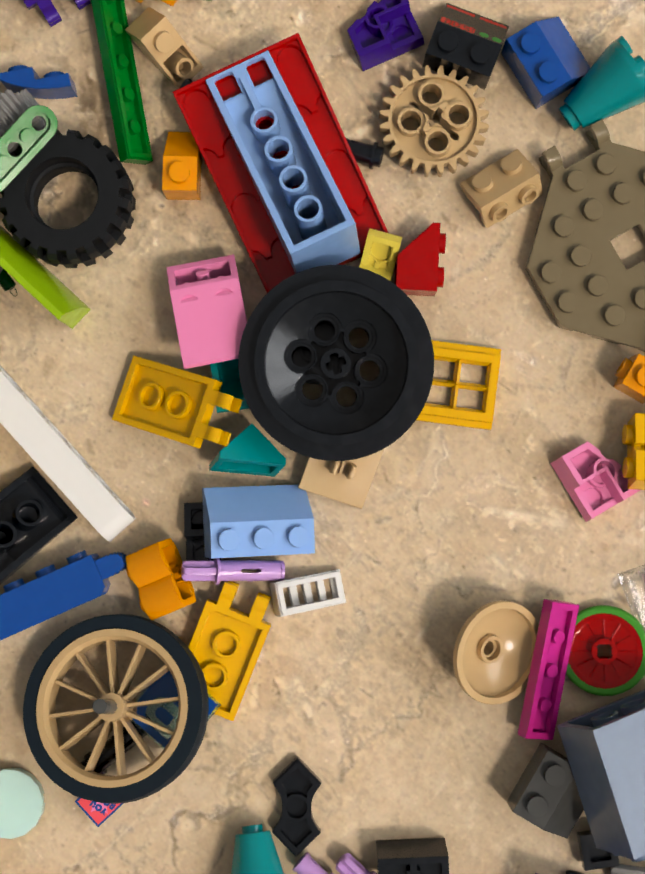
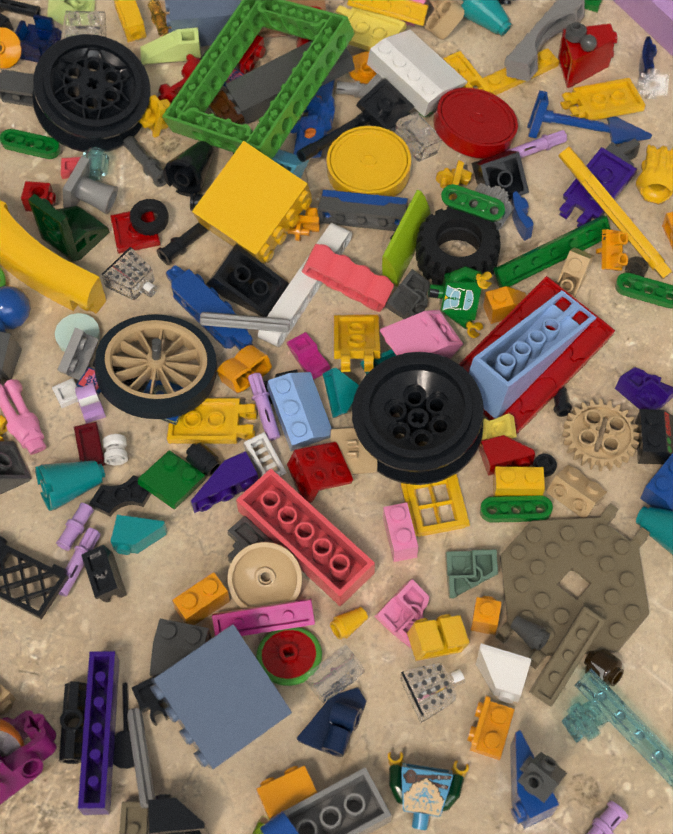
camera: 70 degrees right, 25 degrees down
(54, 815) = (78, 354): none -> light grey bracket
(63, 380) = (349, 278): none -> coral brick
(90, 557) = (245, 322): none -> light grey axle
(105, 842) = (66, 393): none -> white tile
(120, 299) = (409, 296): none -> dark grey slope
(140, 818) = (90, 403): none -> lavender leg
(156, 227) = (461, 295): none -> green torso
(165, 478) = (308, 356): none -> dark pink slope
(201, 831) = (89, 443): none -> dark red tile
(234, 799) = (115, 449): none -> white wheel
(282, 679) = (202, 458): none -> black brick
(299, 732) = (171, 479): none -> green plate
(326, 651) = (229, 479): none -> dark purple slope
(358, 523) = (318, 469): none -> red bracket
(366, 807) = (136, 534): none -> teal slope
(429, 652) = (244, 534): none -> dark grey hinge
(450, 214) = (547, 462): none -> black plate
(454, 578) = (317, 544): none -> coral brick
(470, 262) = (518, 481): none -> yellow brick
(487, 447) = (400, 532): none -> bright pink brick
(495, 745) = (201, 600): none -> light orange brick
(509, 266) = (525, 504): none -> green plate
(563, 373) = (469, 569): none -> sand green slope
(586, 558) = (348, 622): none -> yellow cone

